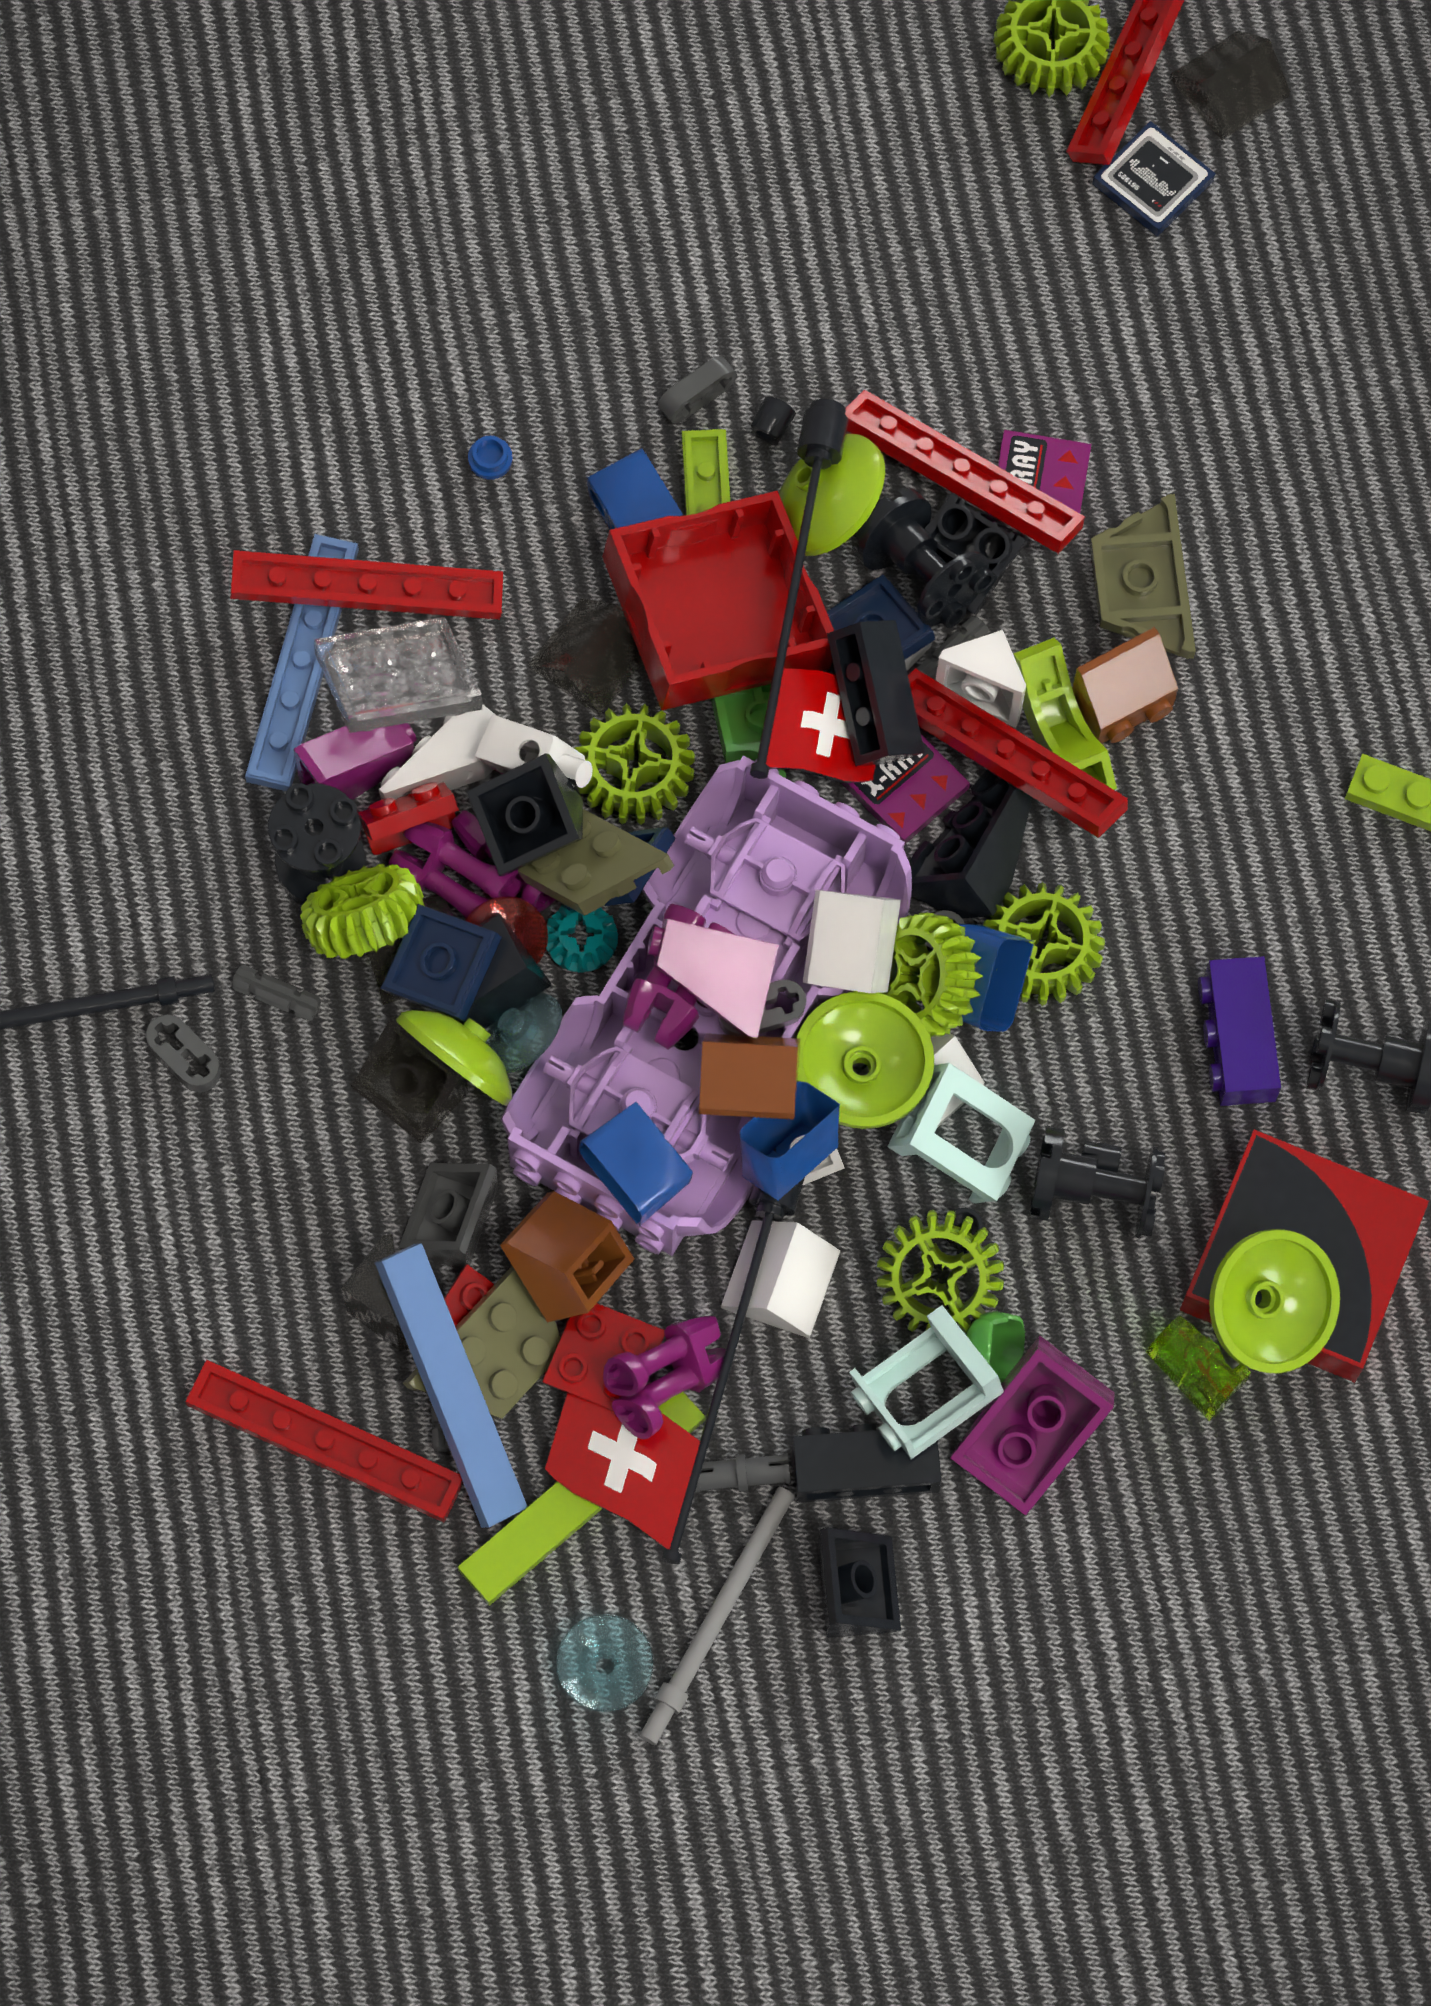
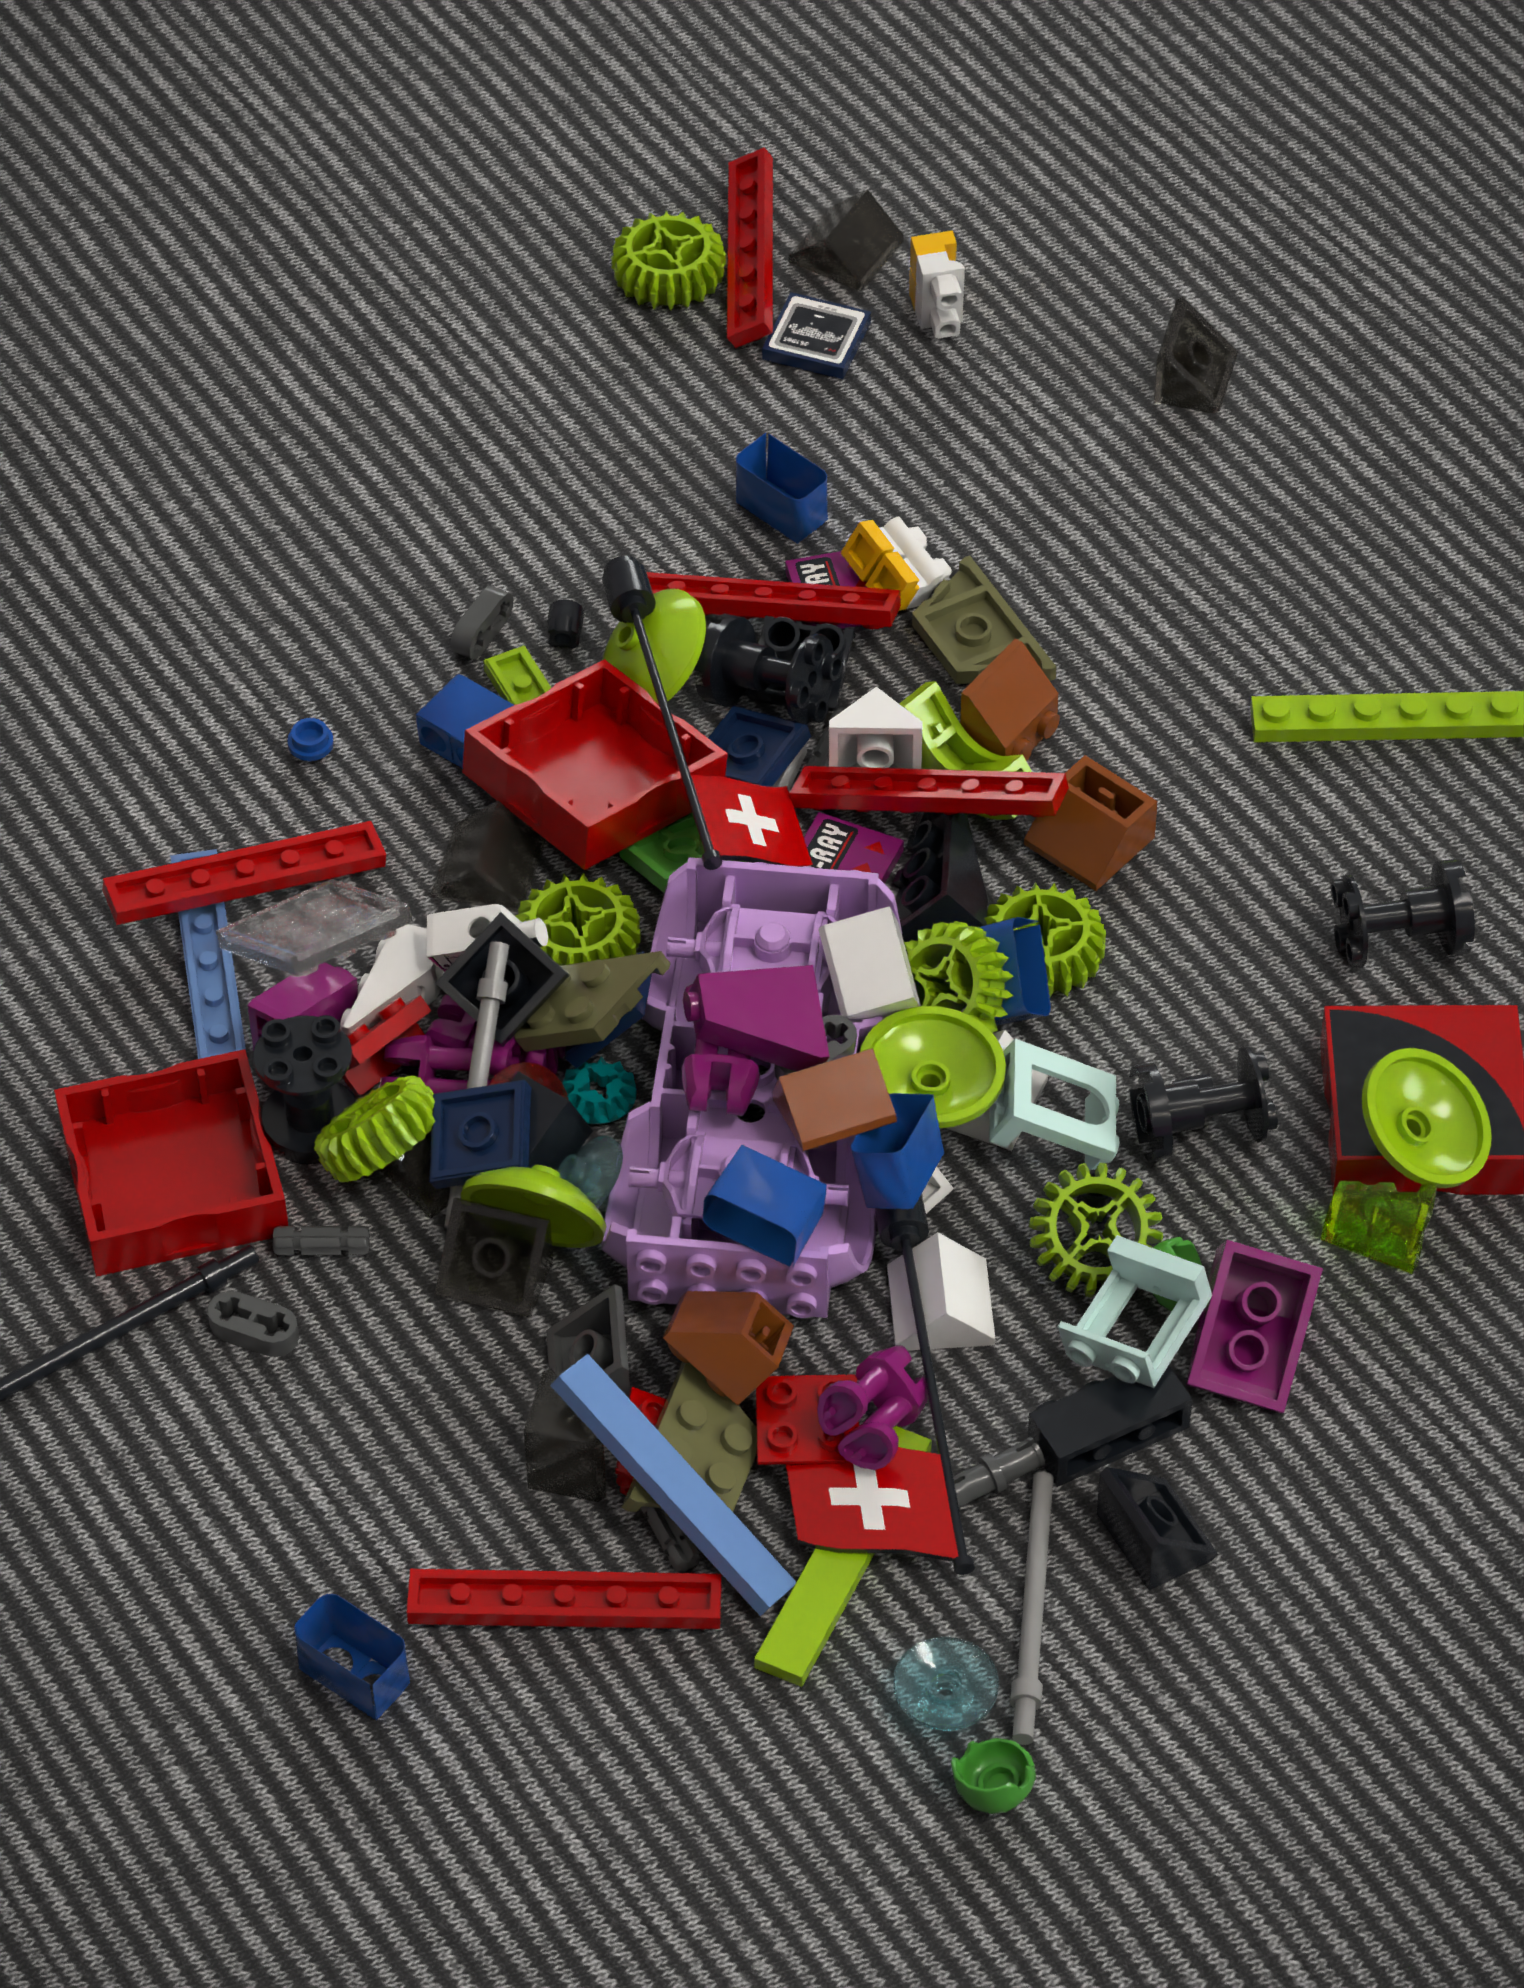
camera: 20 degrees left, 20 degrees down
(116, 1385) = (339, 1624): none -> blue piece
(176, 864) = (171, 1162): none -> red tile
(506, 830) = (491, 993): none -> light grey bar
(603, 1768) = (994, 1775): none -> bright green hair
(875, 692) = (782, 782): black brick -> none
(1019, 319) = (788, 494): none -> blue piece
(1101, 477) = (895, 560): none -> hips
(1148, 843) = (1096, 826): none -> dark orange slope
(1240, 1031) = (1265, 945): dark purple brick -> none
(1286, 173) = (937, 283): none -> white hips

